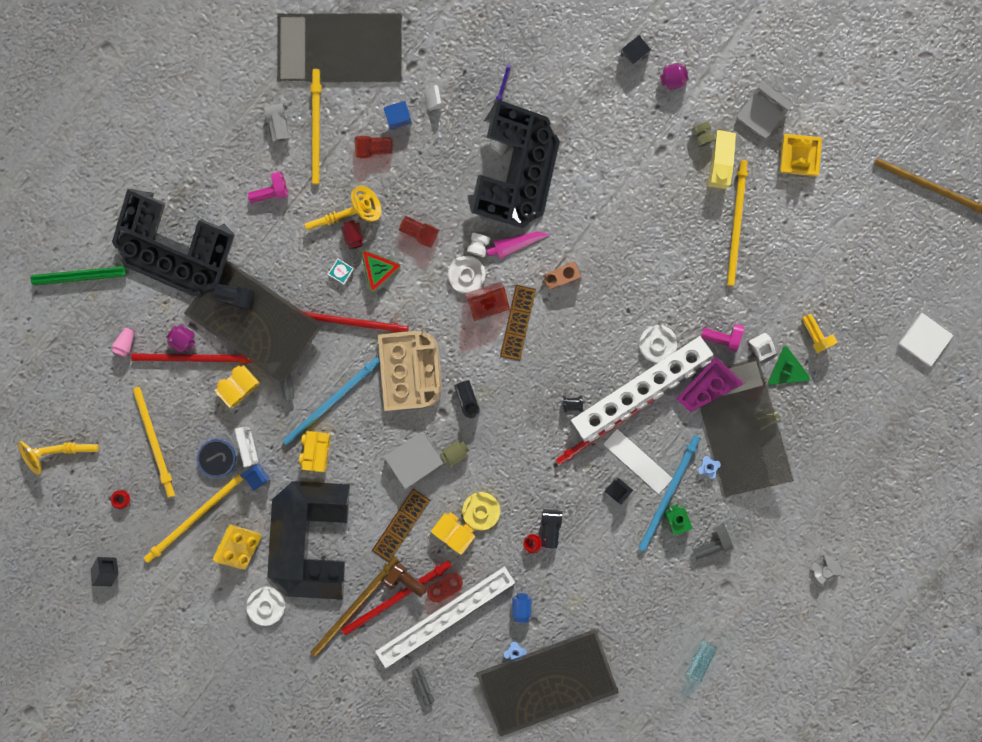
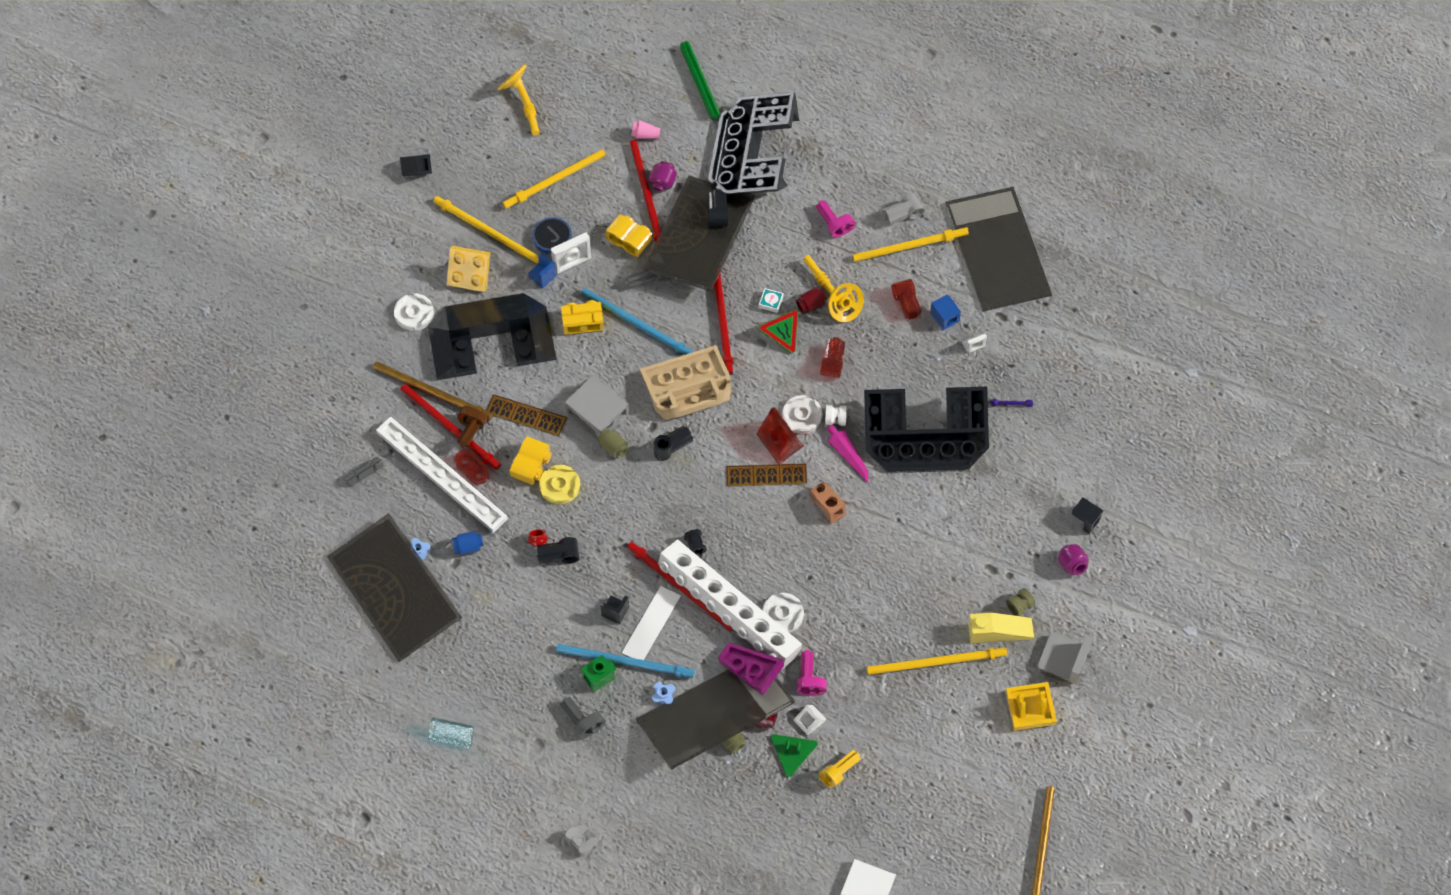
camera: 75 degrees right, 25 degrees down
(115, 502) = (487, 159): red plate -> none

